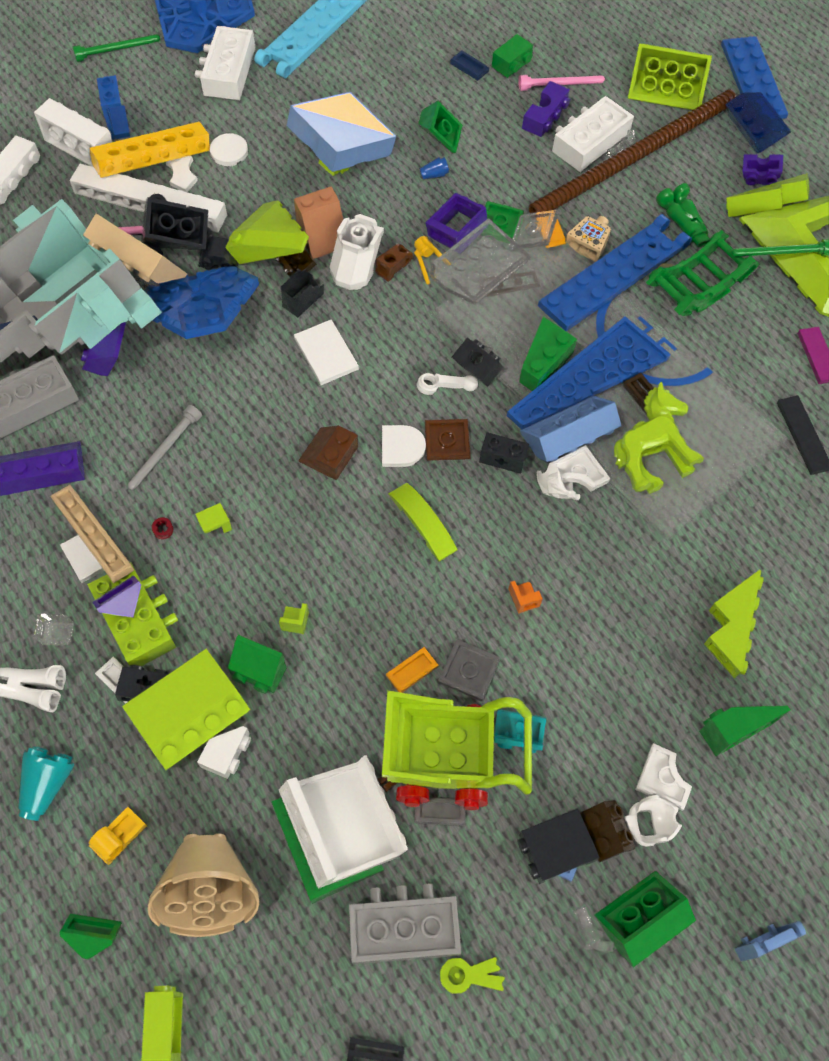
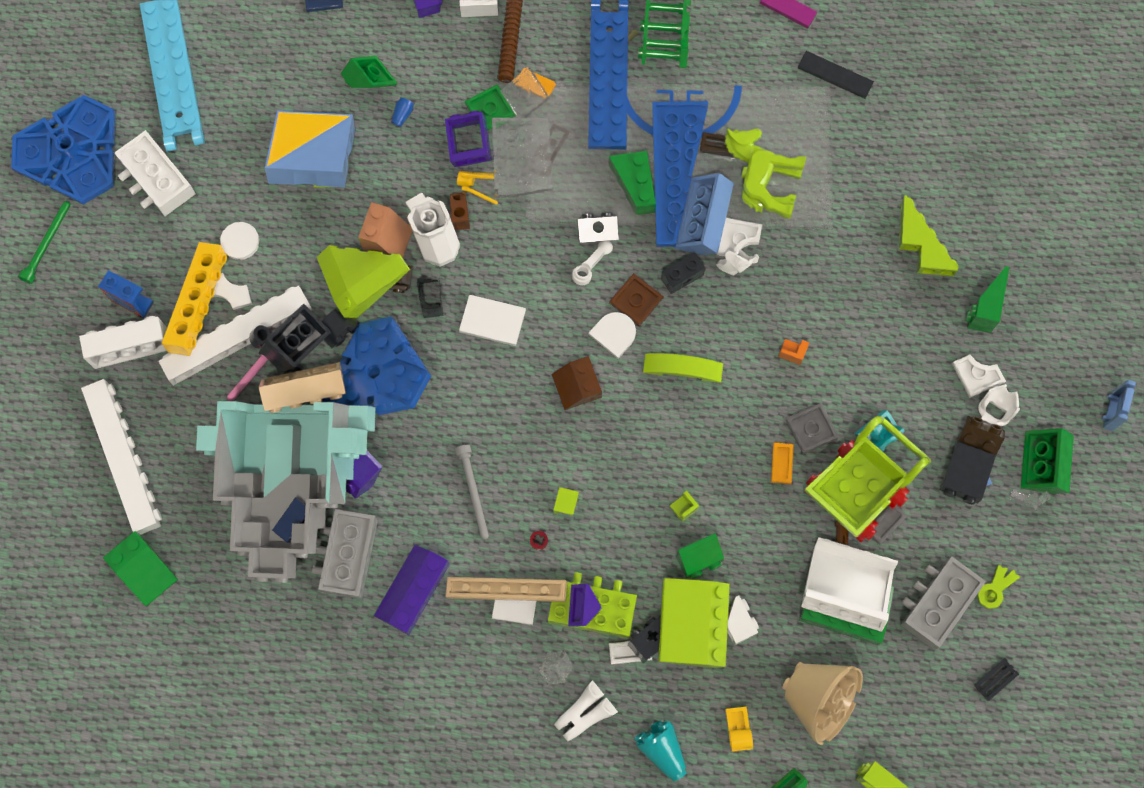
camera: 45 degrees left, 10 degrees up
(589, 237) = (564, 62): tan torso -> none

